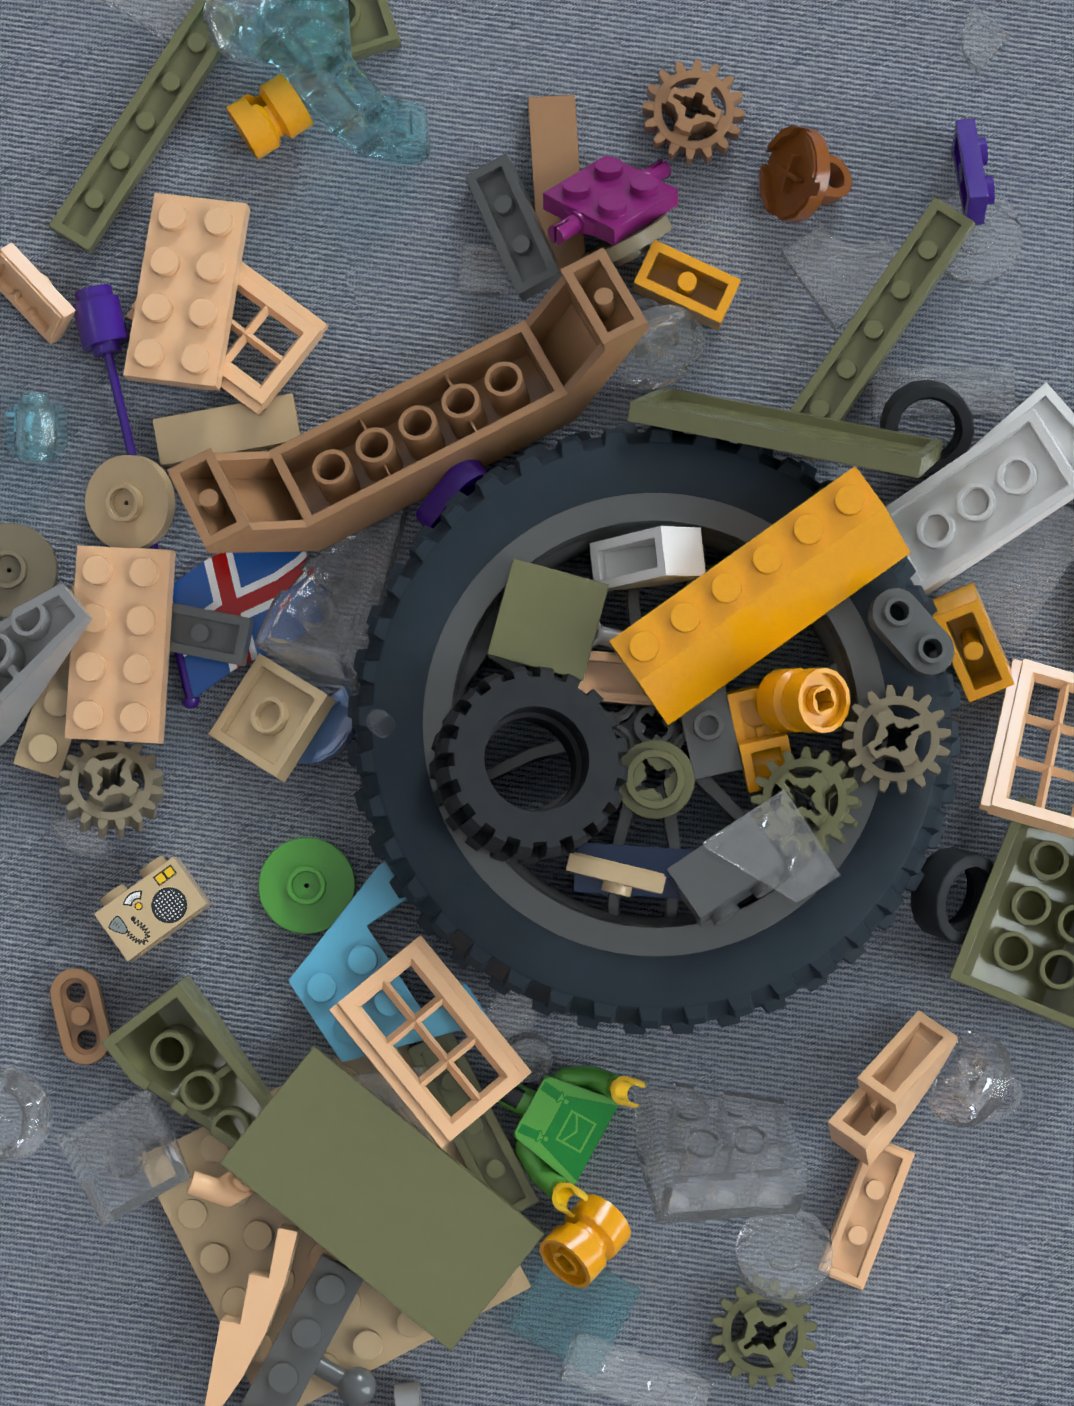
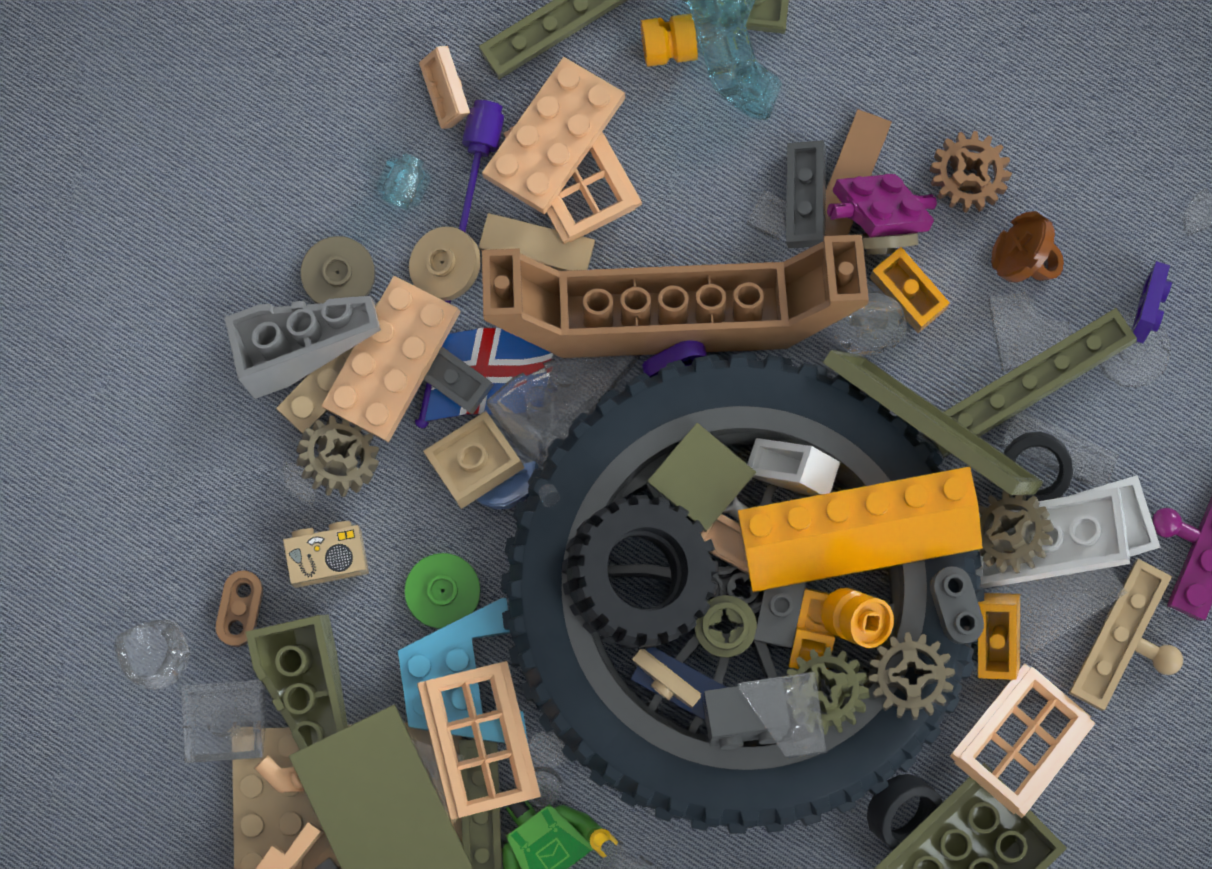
camera: 20 degrees right, 5 degrees down
(944, 499) = (1028, 521): none -> dark tan gear

